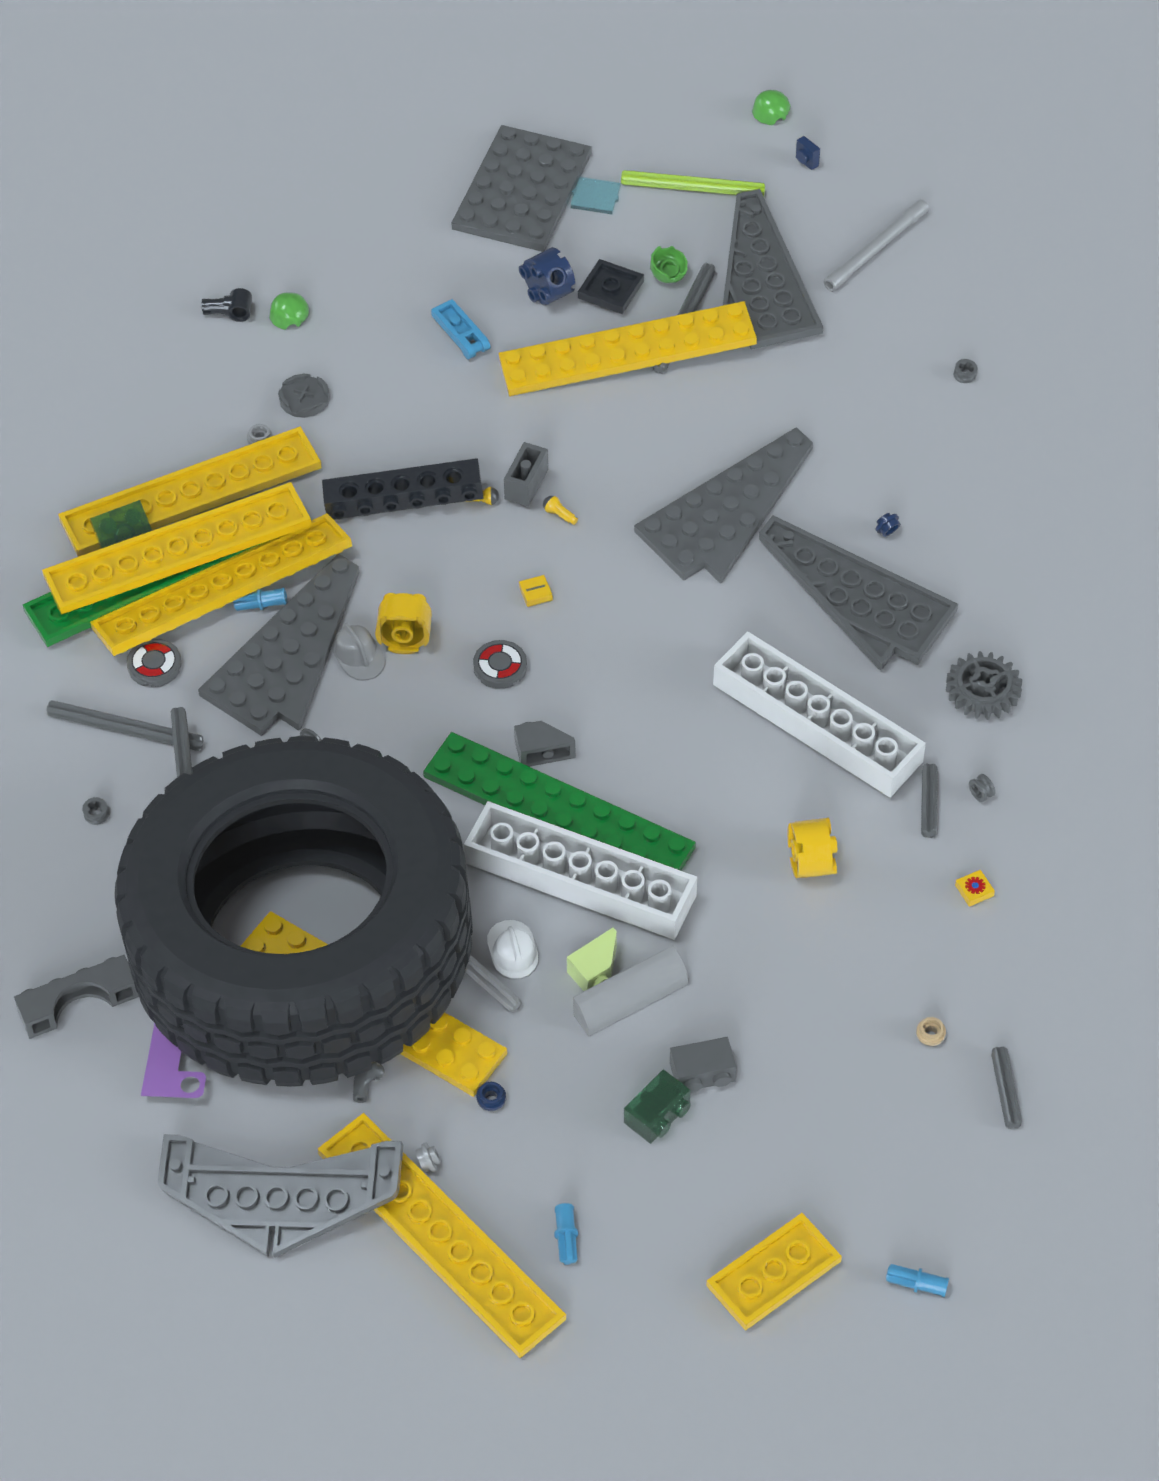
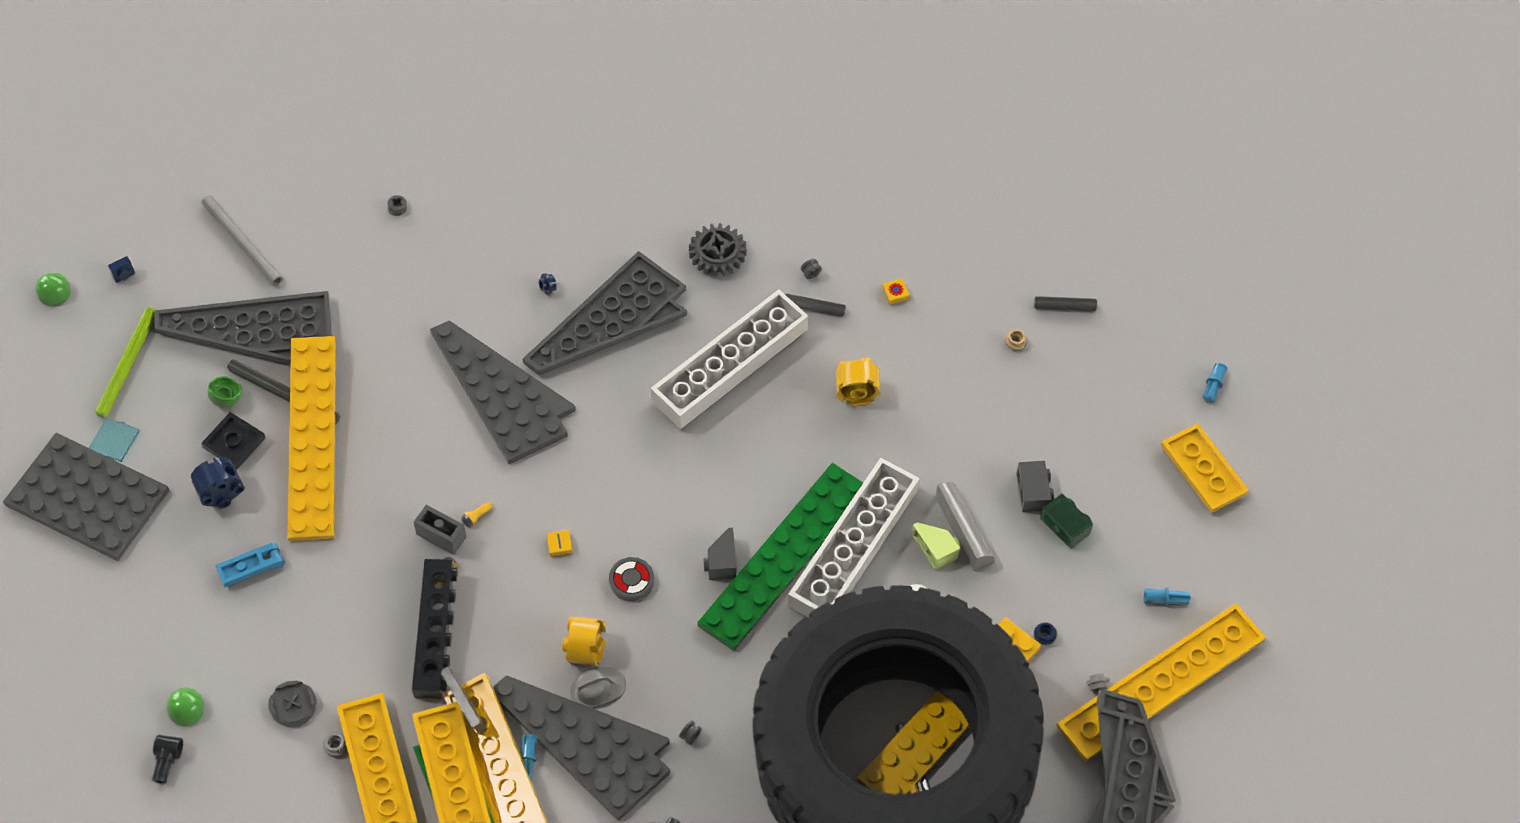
camera: 85 degrees left, 5 degrees up
(312, 523) = (464, 700): none -> tile

